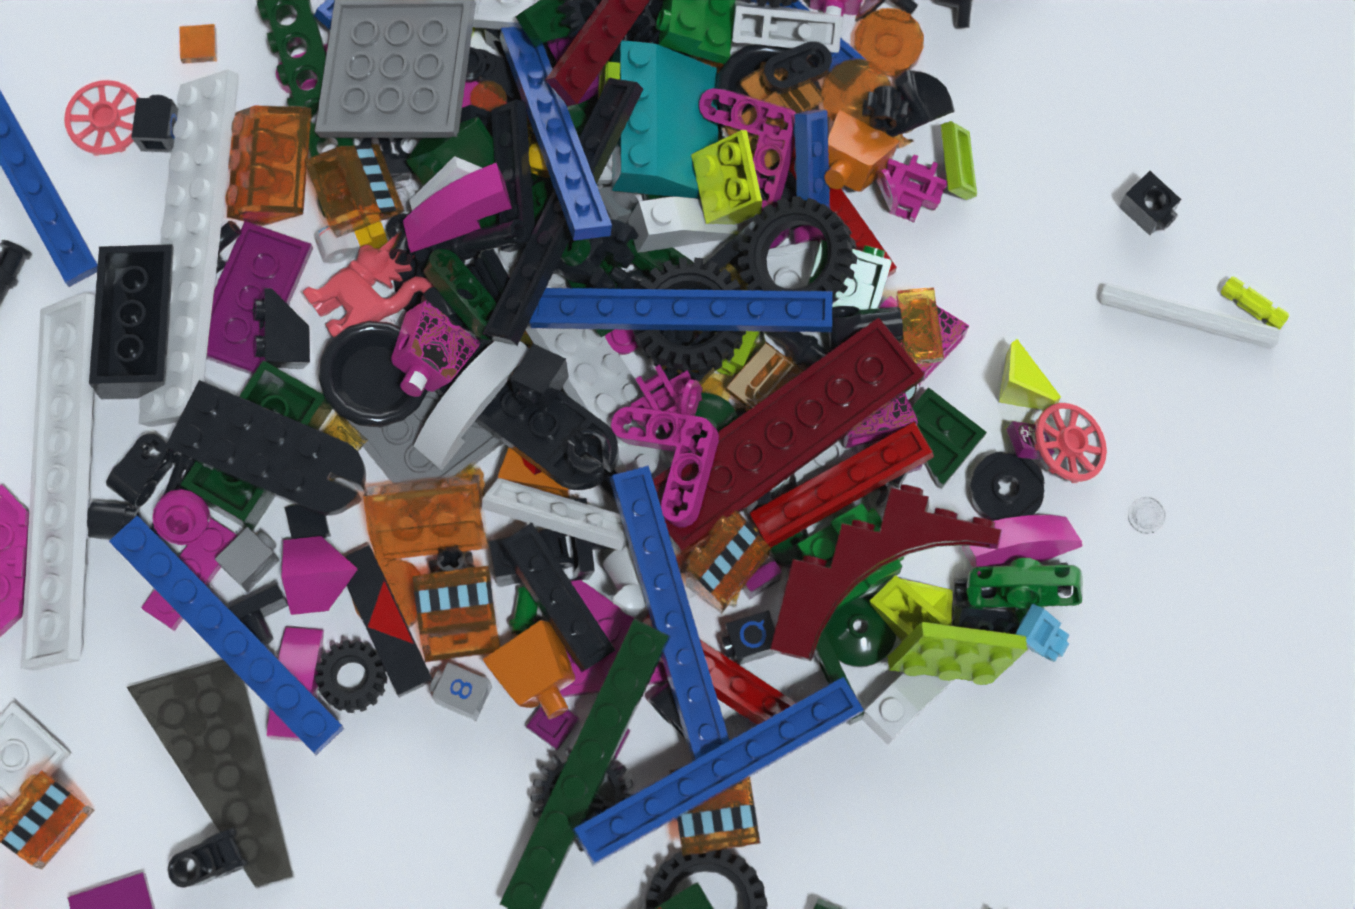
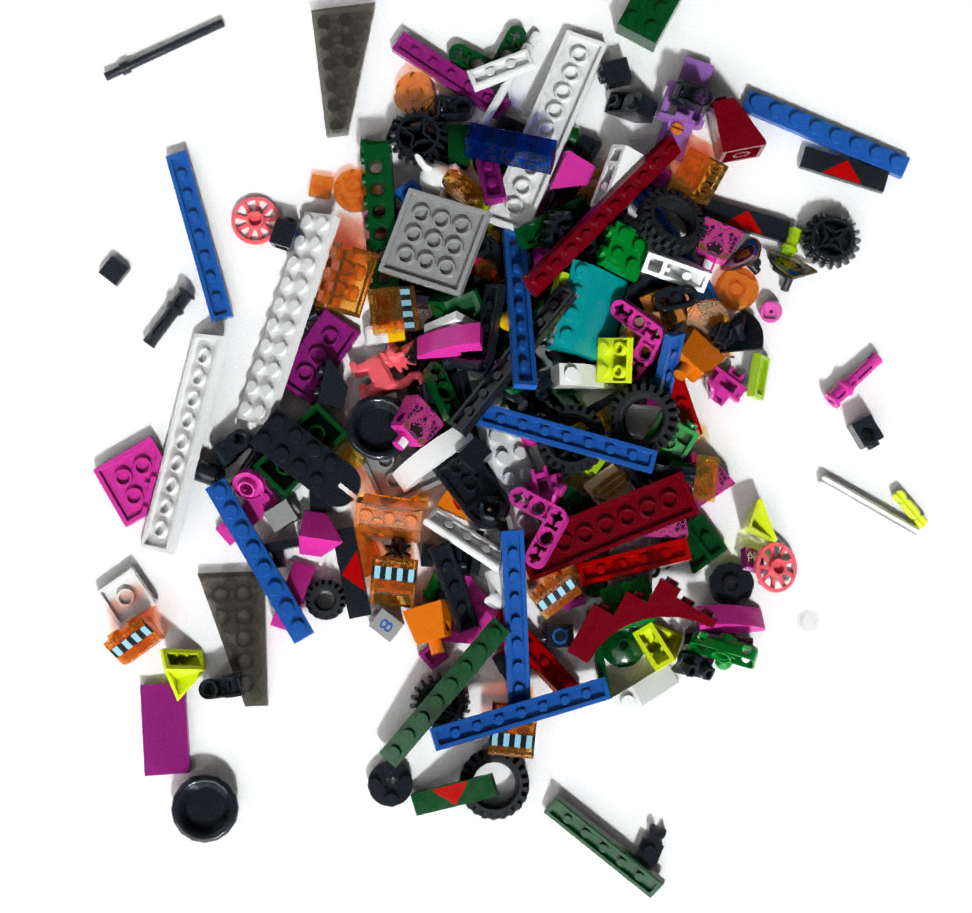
camera: 15 degrees right, 10 degrees up
(131, 320) = (245, 357): black slope -> none
(133, 848) = (182, 668): none -> neon yellow slope
(245, 39) = (349, 191): none -> clear orange tile
(490, 44) = (494, 233): none -> dark brown tile
(950, 61) = (771, 311): none -> dark pink tile
(956, 653) = (673, 679): lime plate -> none
(1043, 633) = (726, 678): medium azure plate -> none
(1100, 144) = (846, 386): none -> dark pink pin

